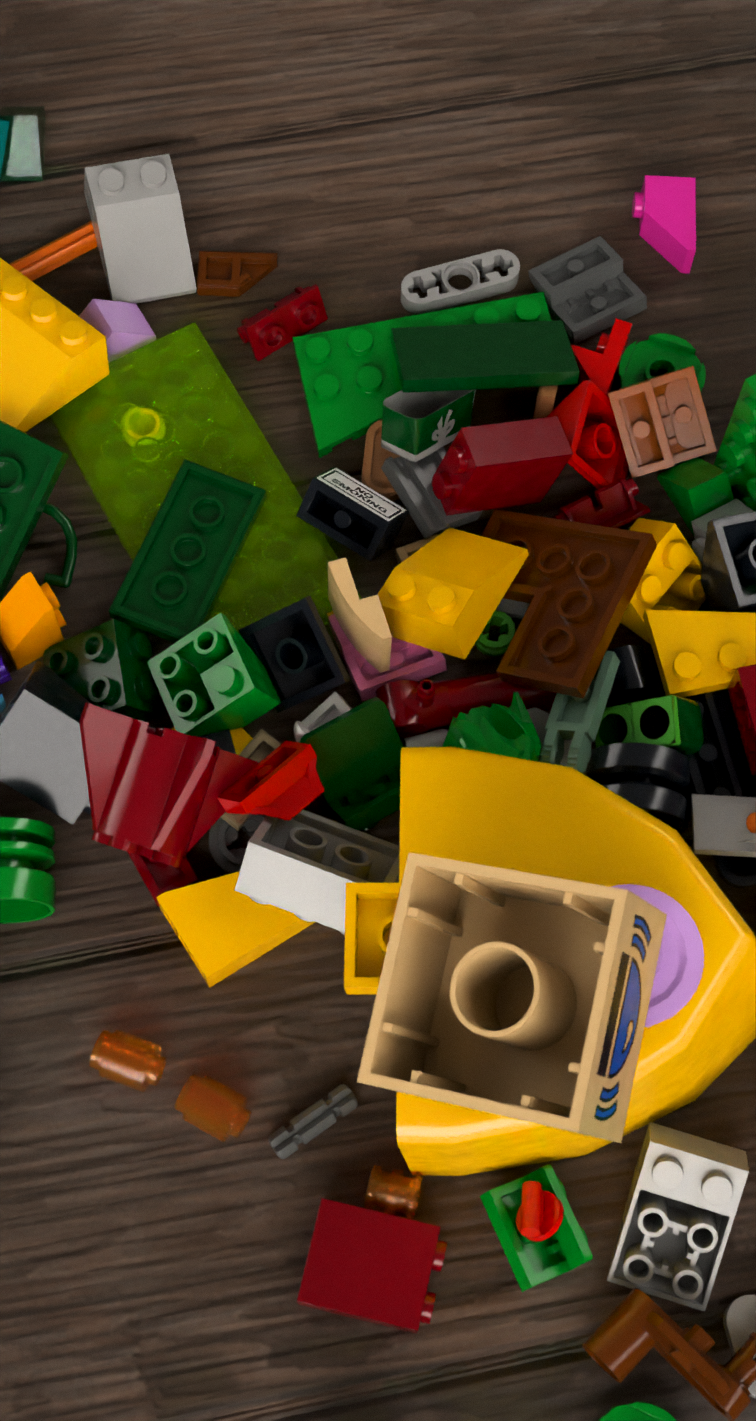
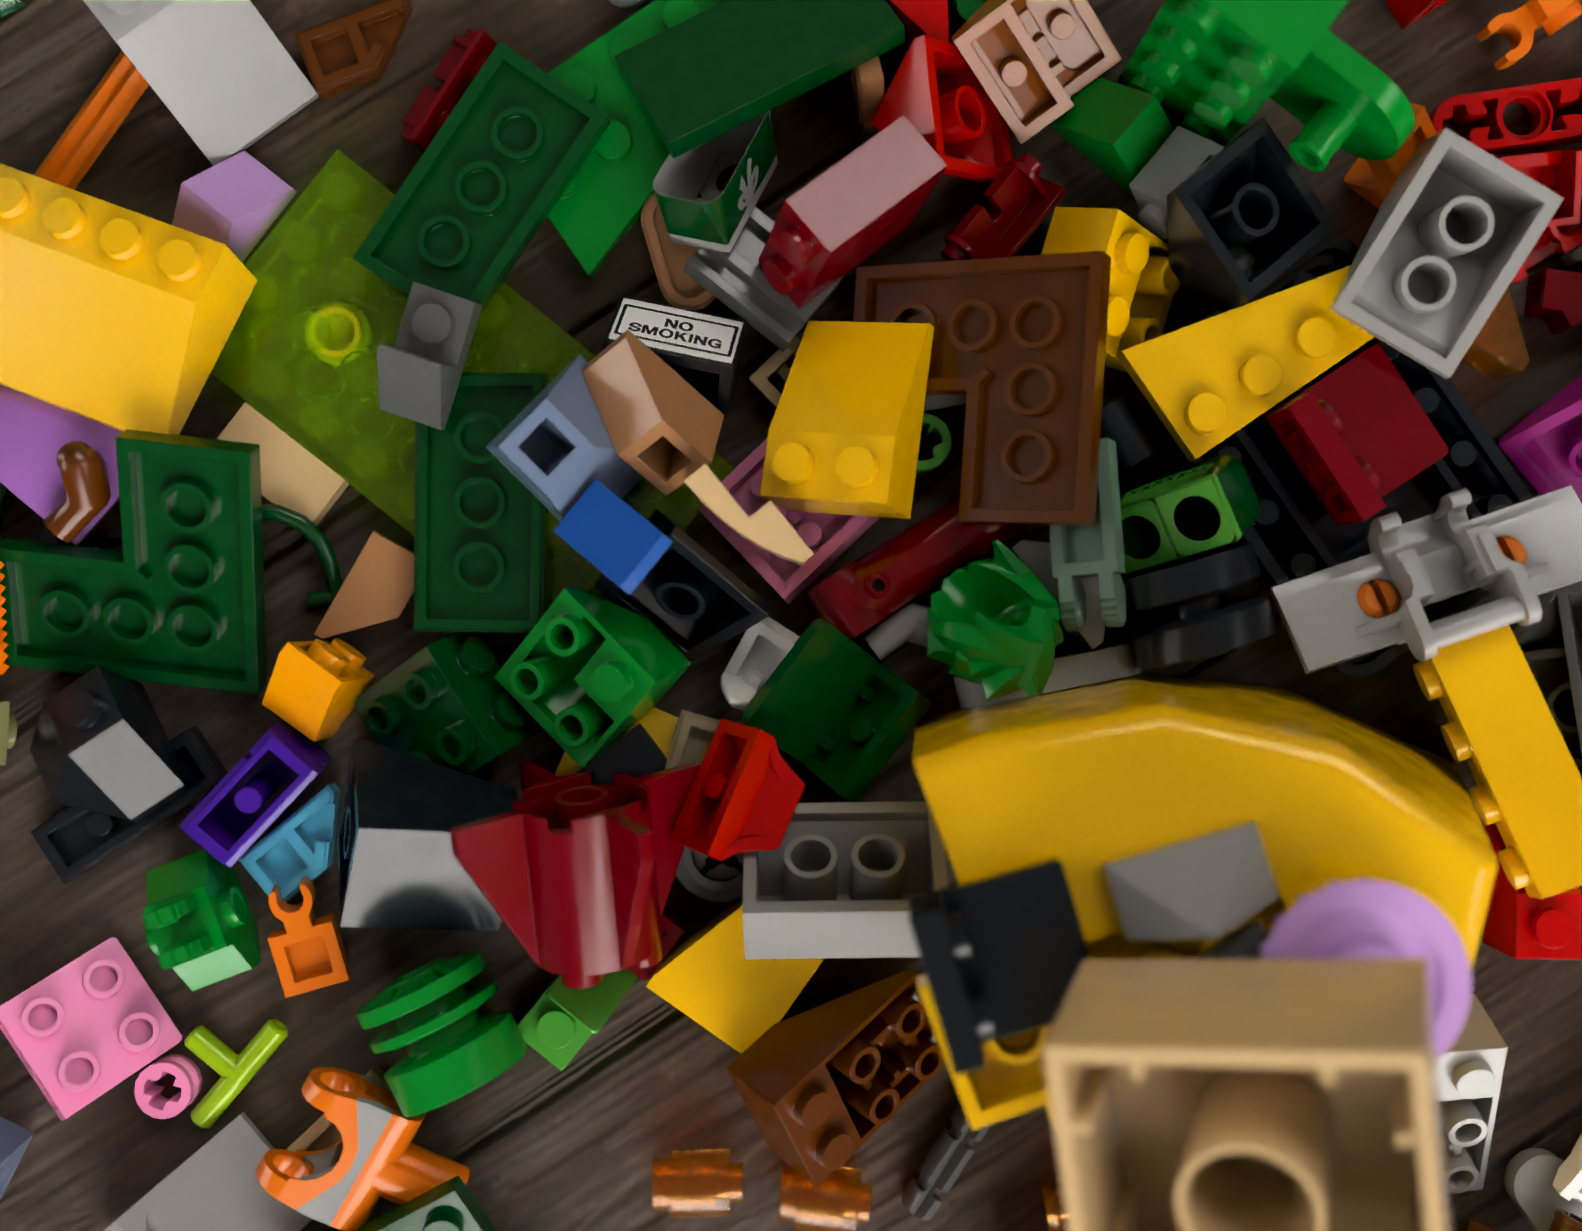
camera: 15 degrees left, 20 degrees up
(76, 496) = (287, 469): none -> tan tile
(92, 583) = (373, 589): none -> medium nougat tile
(104, 902) = (568, 1016): none -> bright green slope
(197, 448) = (428, 357): none -> dark grey slope
(265, 586) = (613, 536): none -> blue slope
(265, 1012) = (838, 1073): none -> reddish brown slope
(266, 536) = (562, 445): none -> sand blue slope
(275, 372) = (484, 182): none -> dark green plate
(323, 527) = (652, 413): none -> medium nougat slope
(382, 856) = (998, 955): none -> black bracket
(553, 861) = (1193, 885): none -> light grey slope

